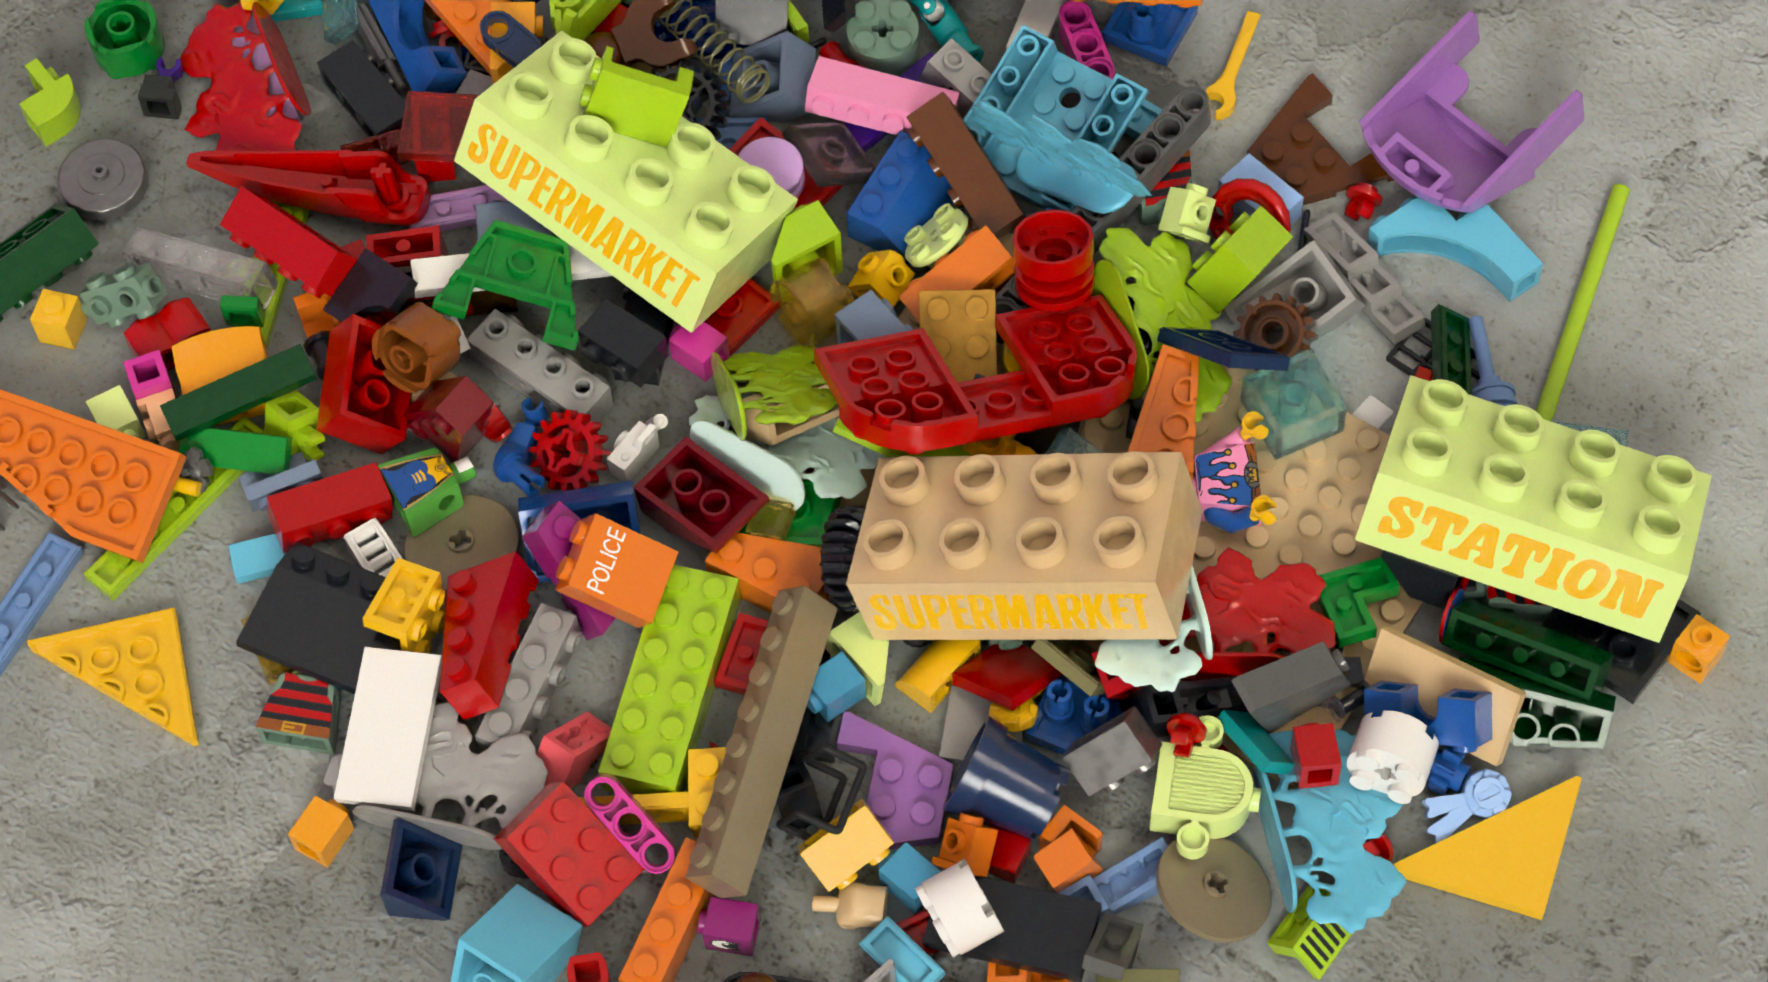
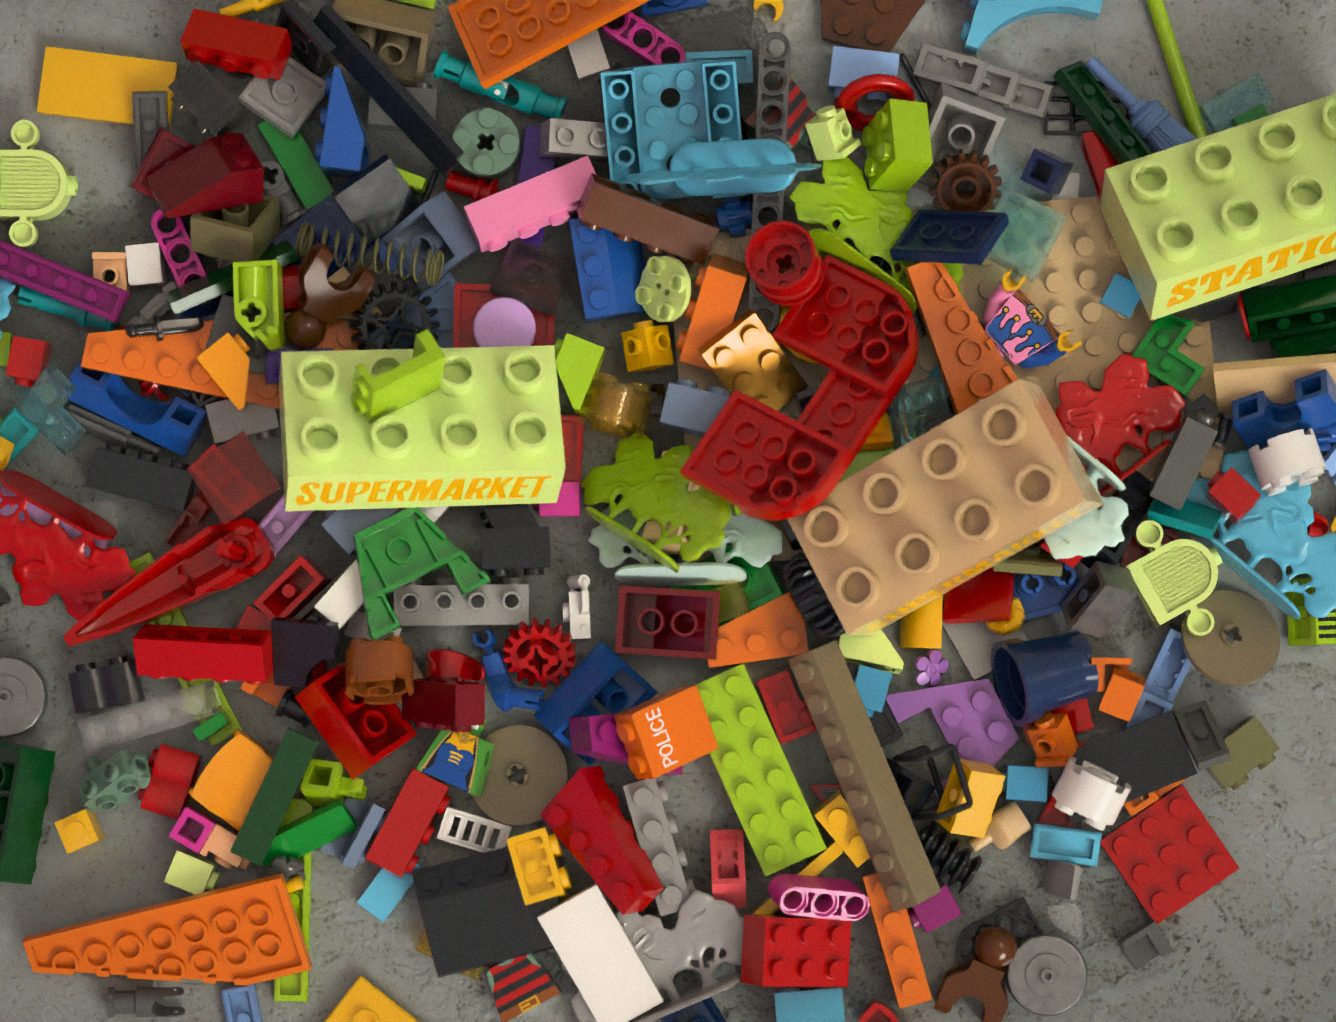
camera: 35 degrees left, 25 degrees up
(184, 218) = (105, 686): none -> black brick
(515, 44) = (248, 379): dark blue piece -> none
(779, 888) = (948, 856): none -> black piece
(908, 717) = (930, 668): none -> medium lavender plant
(1185, 732) = (1140, 549): red plate -> none
(1344, 525) = (1121, 296): none -> dark azure tile
(1361, 377) = (1046, 171): none -> dark blue brick
(1362, 201) = (937, 19): red plate -> none

